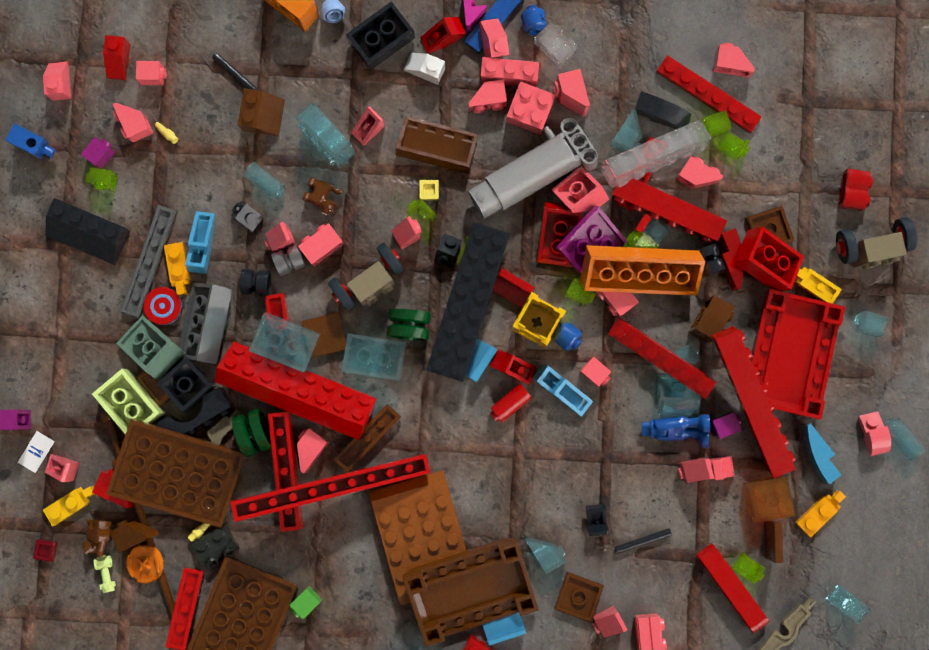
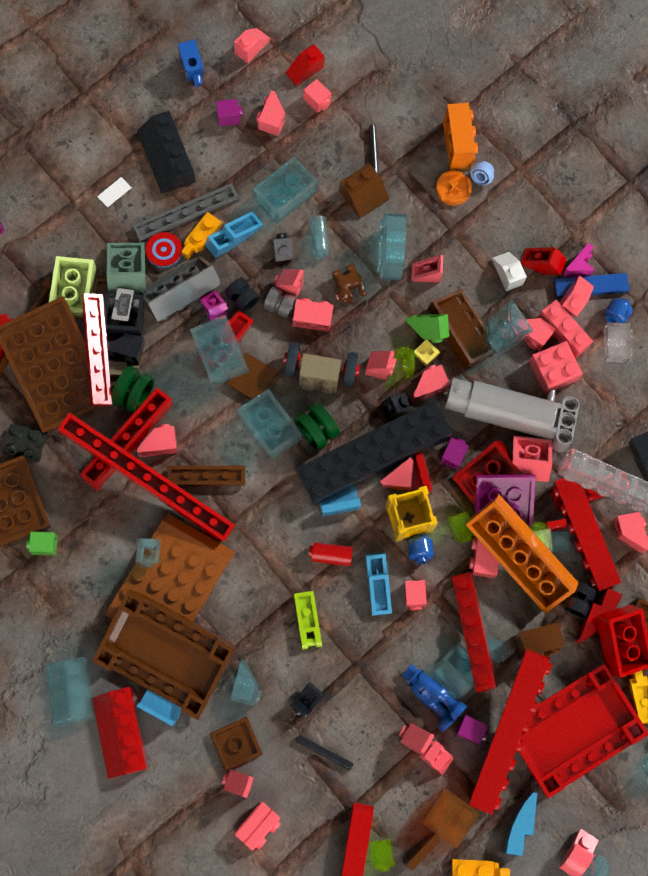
camera: 35 degrees right, 10 degrees down
(79, 299) = (114, 192): none -> white sticker
(102, 179) = (213, 131): clear neon green brick -> none
(167, 133) = (287, 145): light yellow piece -> none
(179, 379) = (122, 304): none -> sticker
(196, 432) = (96, 350): none -> plate
(198, 531) = (24, 421): light yellow piece -> none
(203, 171) = (285, 190): none -> clear light blue brick
(243, 310) = (213, 305): none -> dark pink slope
(295, 391) = (192, 392): red brick -> none
(322, 43) = (453, 188): none -> orange tile
(380, 36) = (499, 219): black brick -> none
(394, 536) = (152, 546): none -> clear light blue brick
(412, 168) = (430, 327): none -> bright green slope
(455, 208) = (431, 383): none -> coral slope
(468, 114) = (507, 328): none -> clear light blue slope
(503, 299) = (401, 477): none -> coral slope
(513, 366) = (359, 531): red slope -> none
(522, 243) = (454, 453): none -> magenta brick
(540, 464) = (307, 619): none -> lime plate
(572, 92) = (596, 383): coral slope -> none
(628, 135) = (609, 452): clear light blue slope -> none

